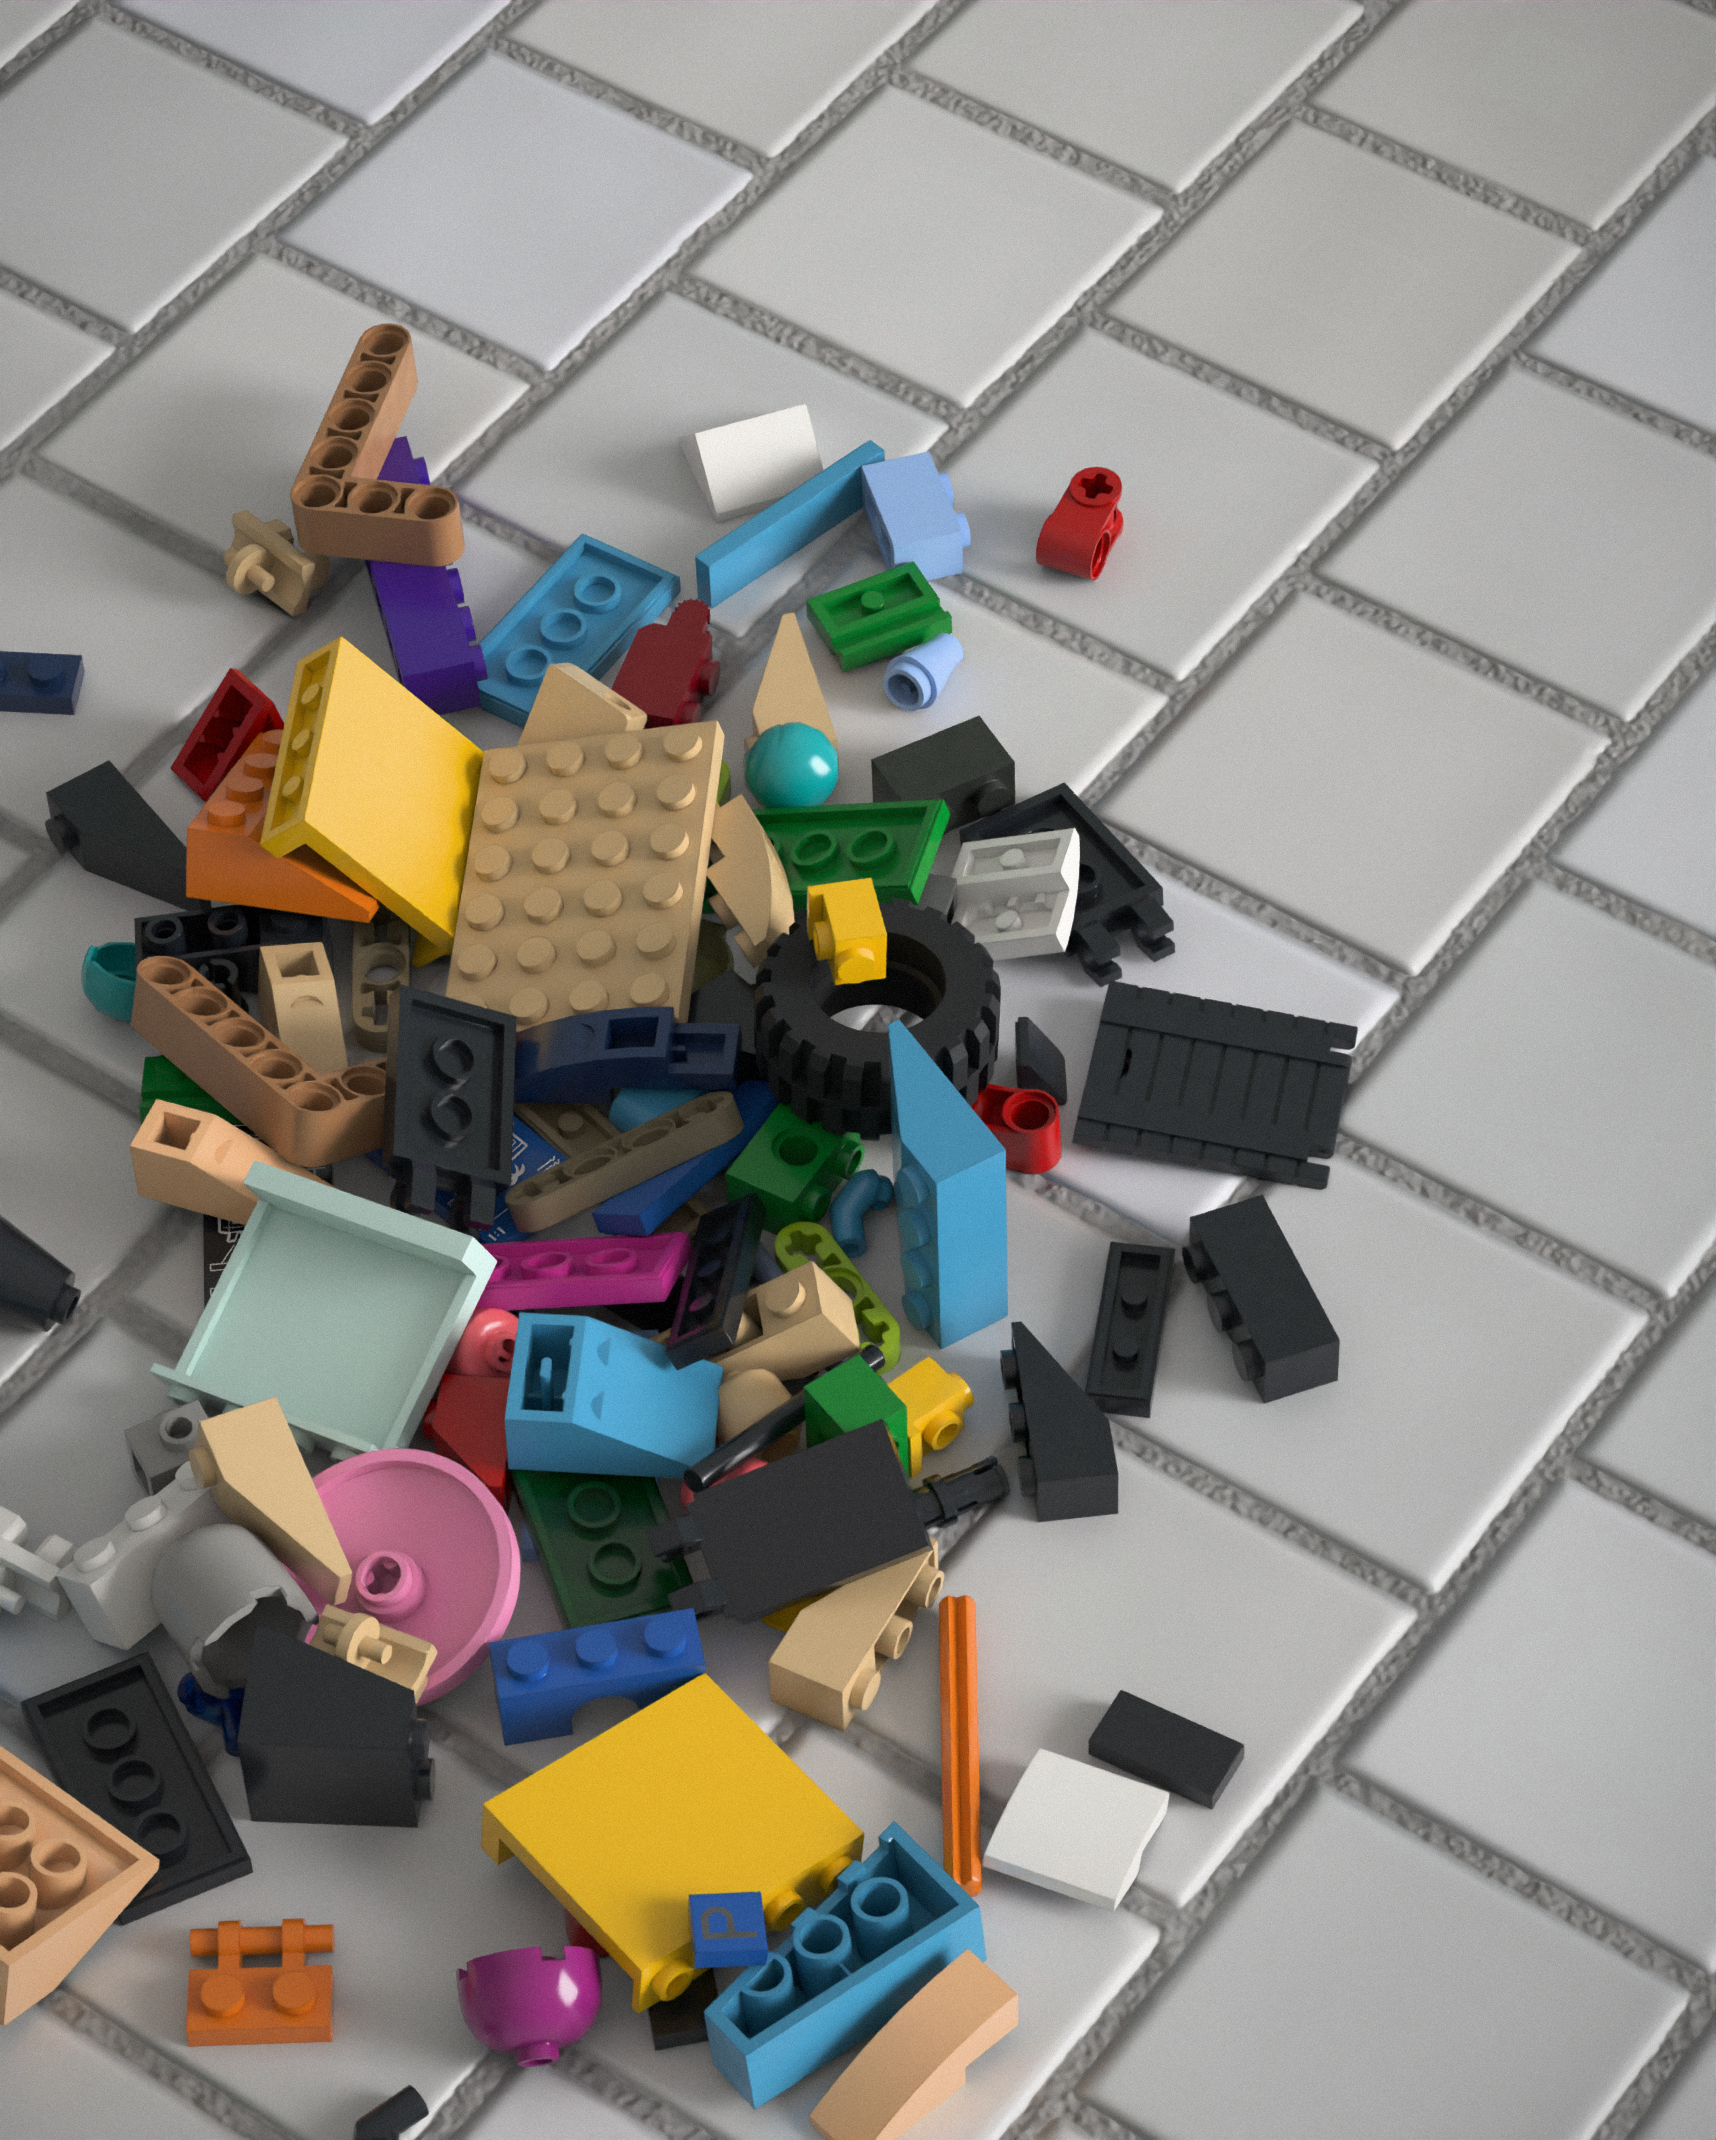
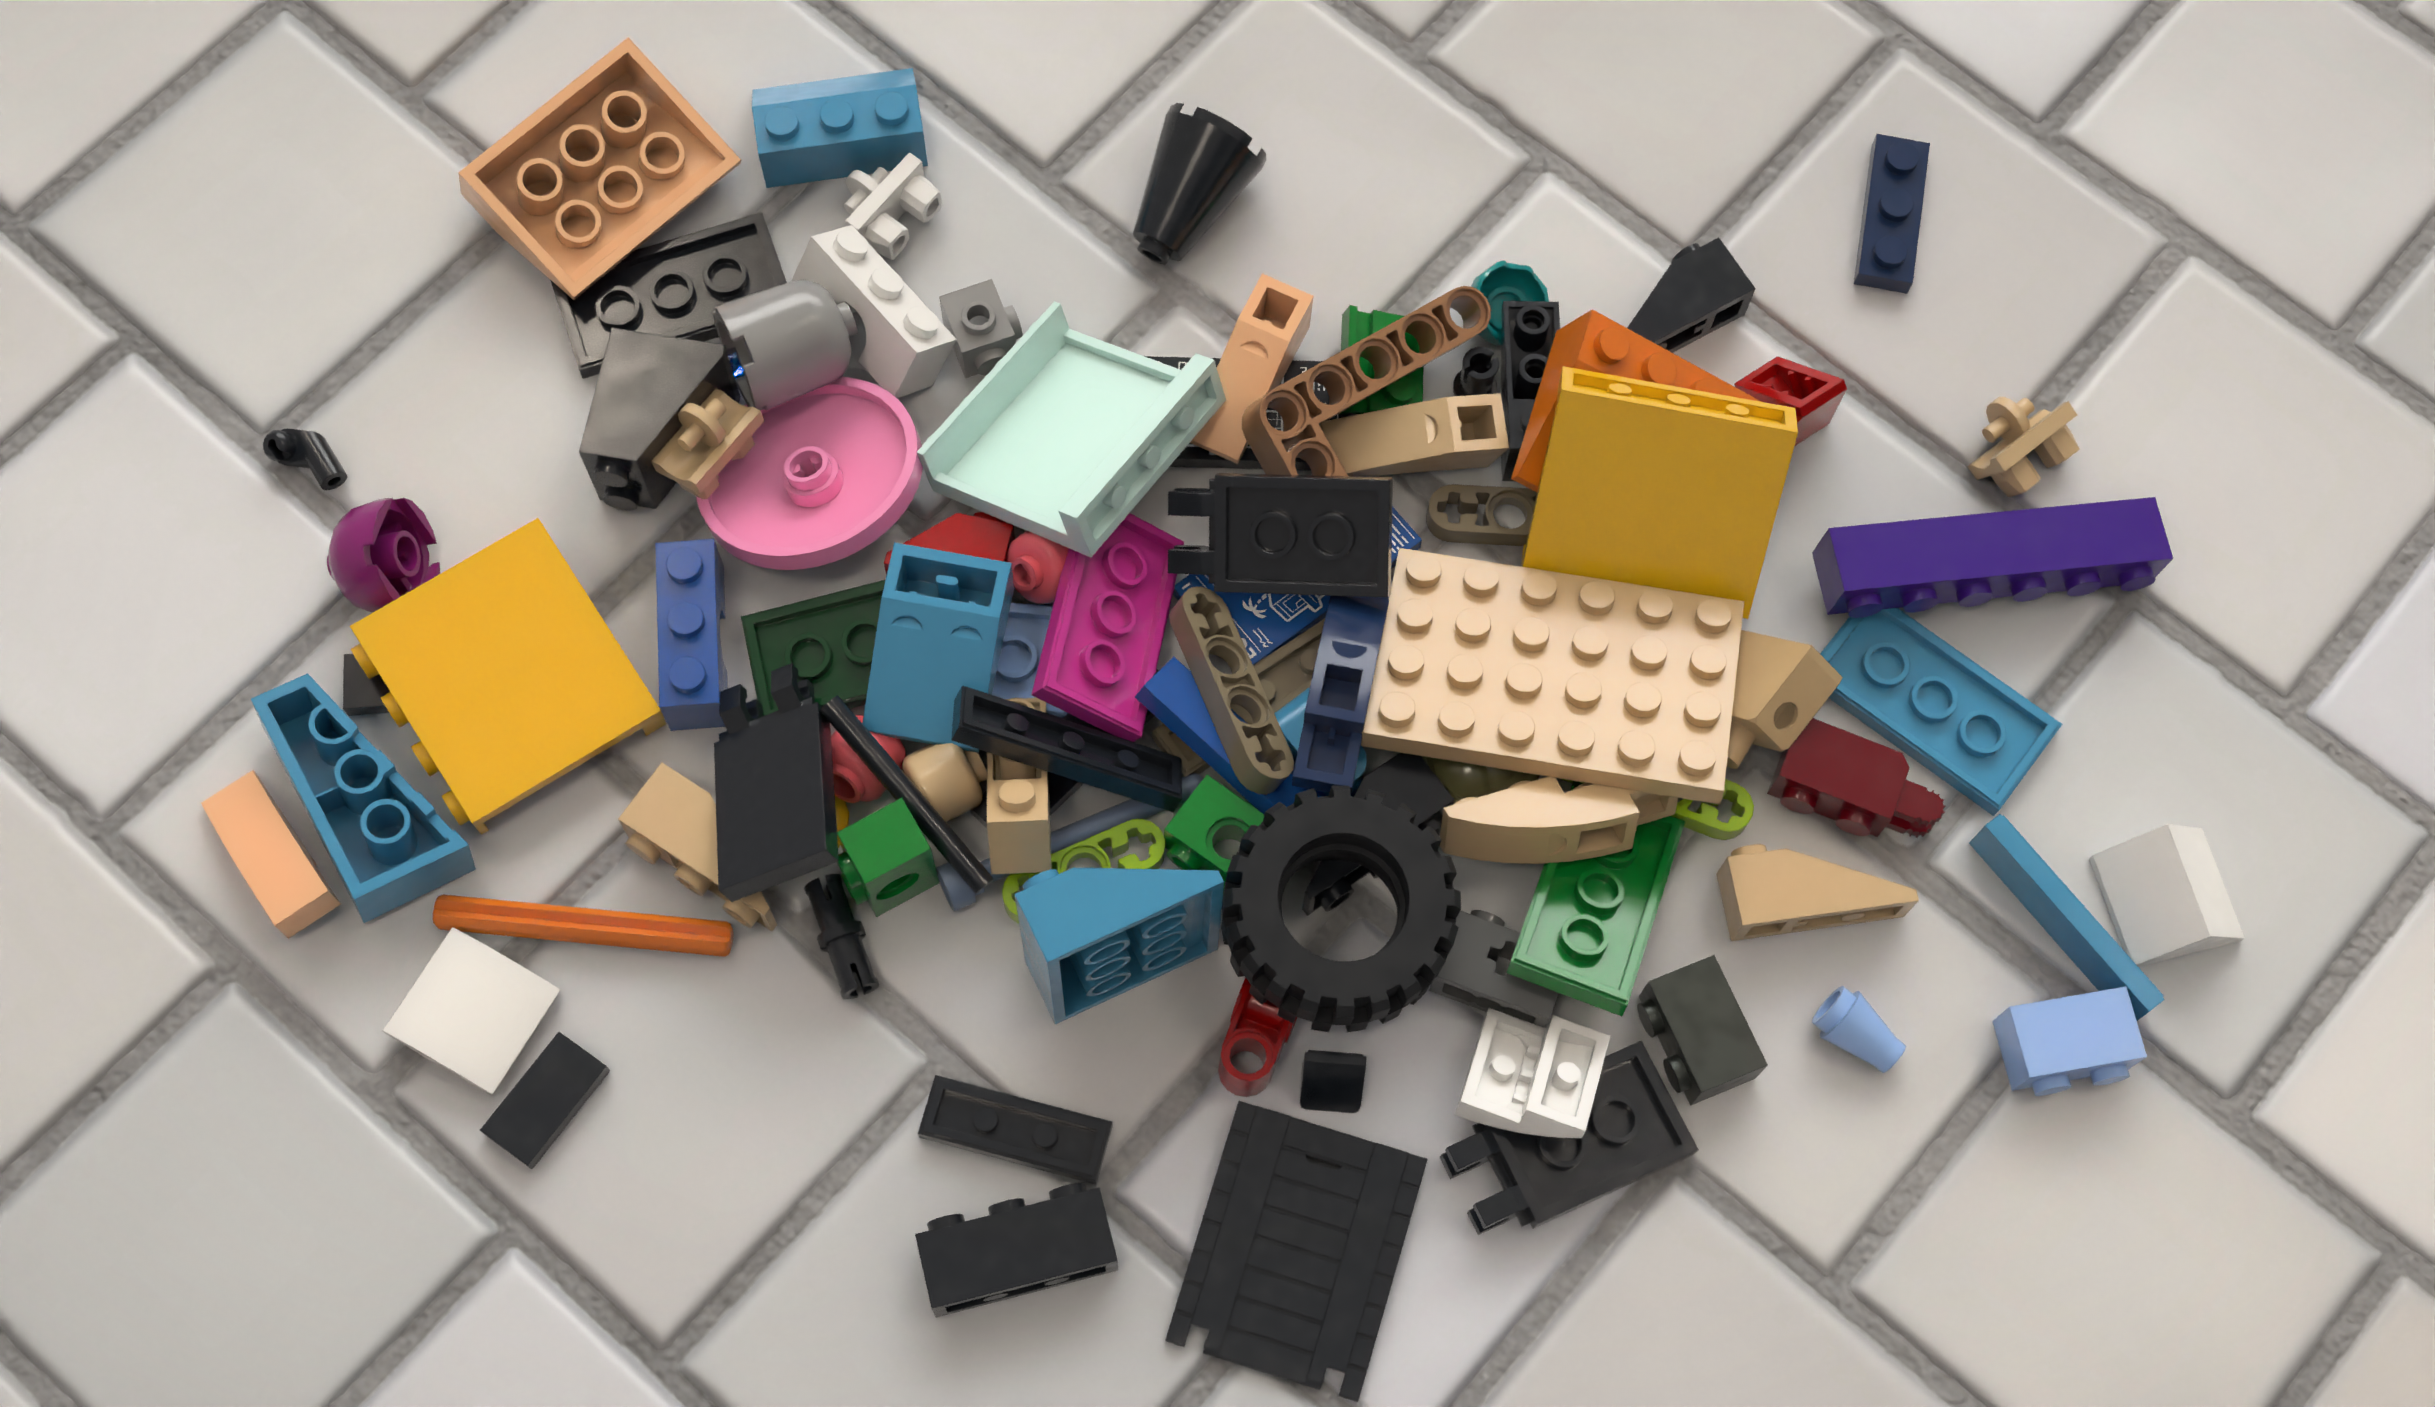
camera: 90 degrees right, 20 degrees up
(262, 2002) = (451, 370): orange plate -> none
(266, 1487) = (869, 365): tan slope -> none
(337, 494) = (2122, 504): medium nougat beam -> none
(727, 1929) = (369, 693): blue tile -> none
(791, 766) = (1710, 881): teal hair -> none
(848, 930) = (1380, 864): yellow brick -> none
(878, 616) = (1936, 994): green plate -> none
(933, 1408) = (930, 925): yellow brick -> none
(1064, 1433) = (881, 1047): black slope -> none
(1083, 525) = (2046, 1208): red piece -> none

